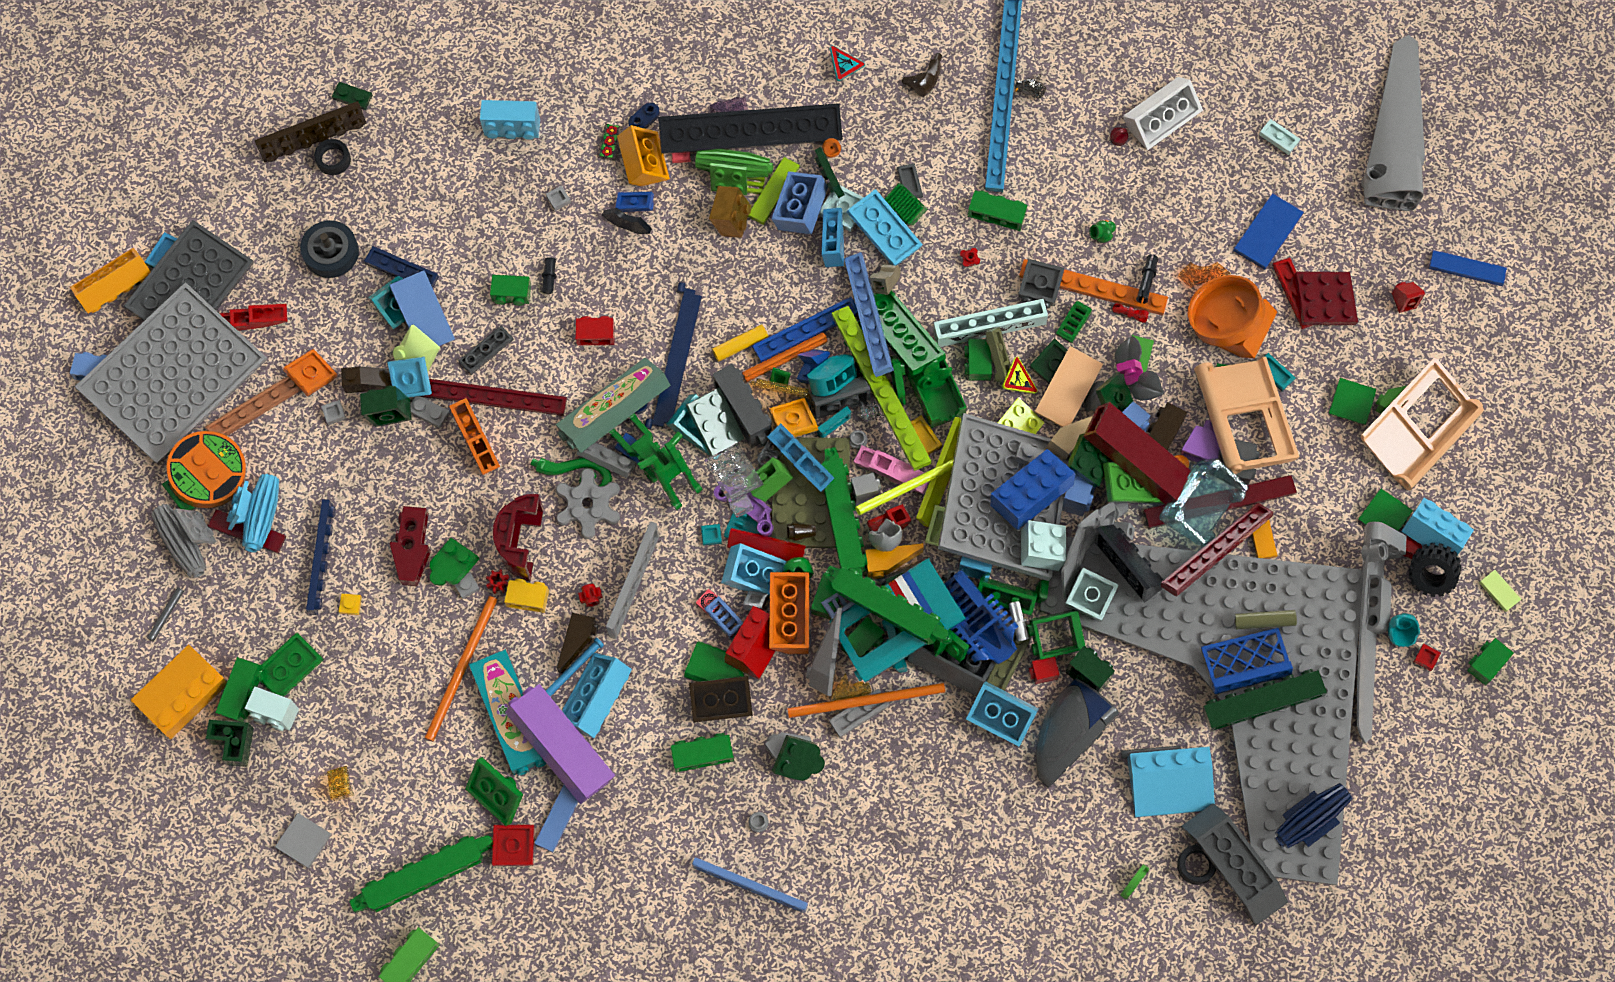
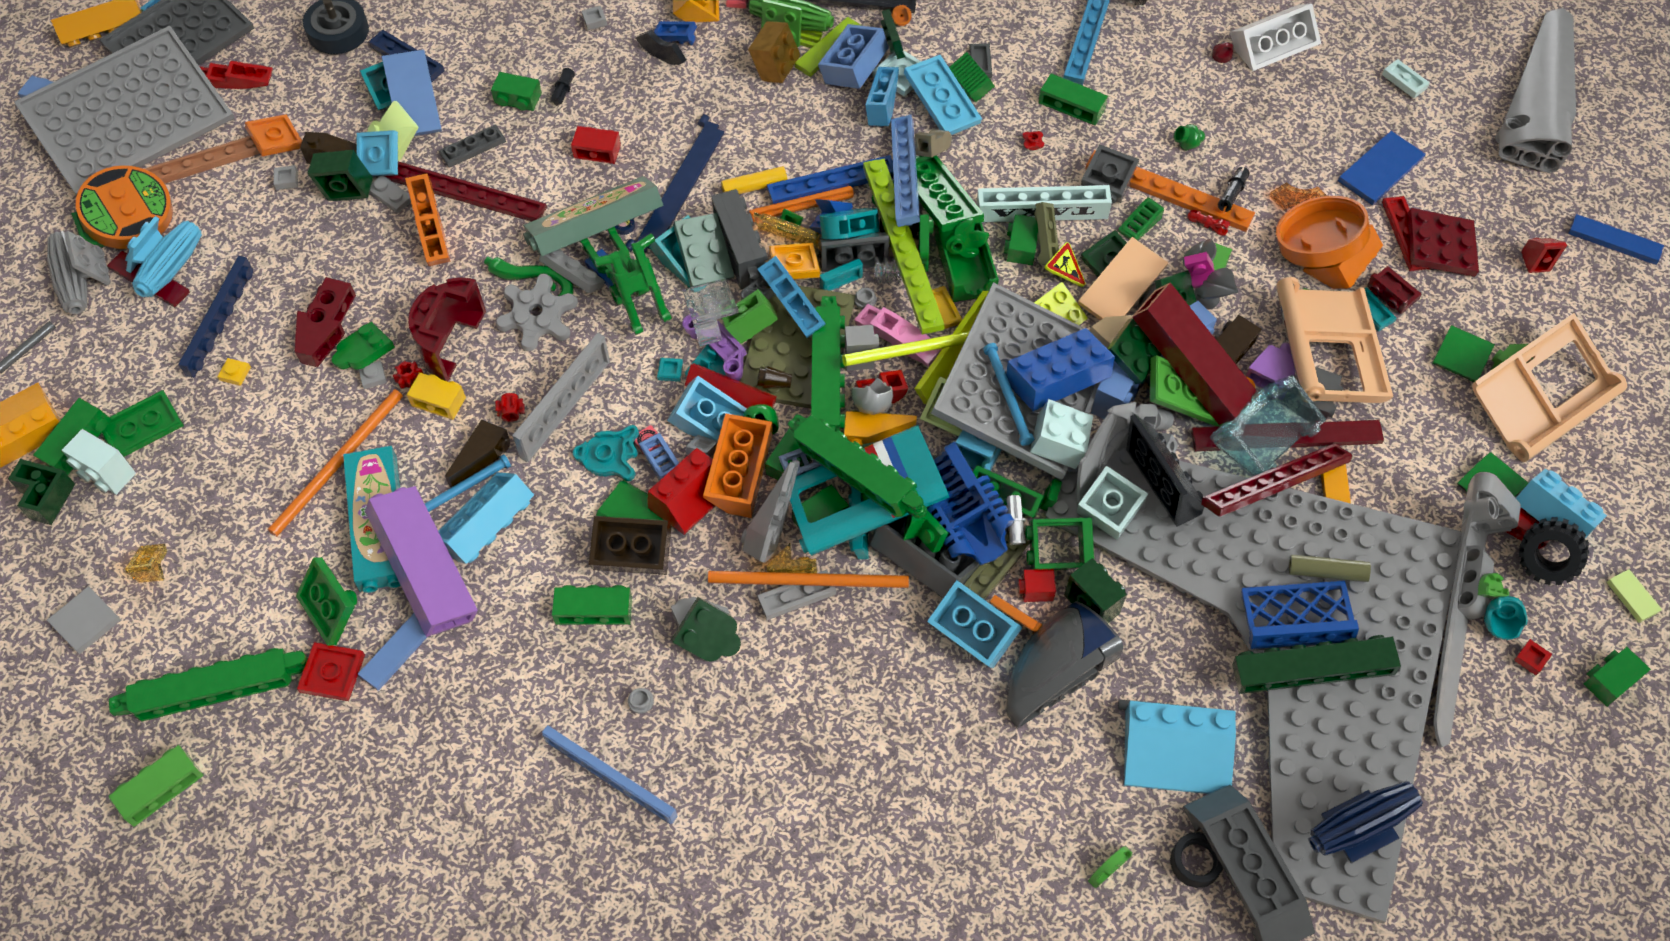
camera: 10 degrees right, 10 degrees down
(680, 619) = (609, 453): none -> teal tile
(974, 481) = (1025, 437): none -> dark azure bar
(1032, 699) = (1015, 613): none -> orange tile
(1290, 351) = (1393, 290): none -> dark red bracket
(1391, 606) = (1491, 586): none -> bright green tile

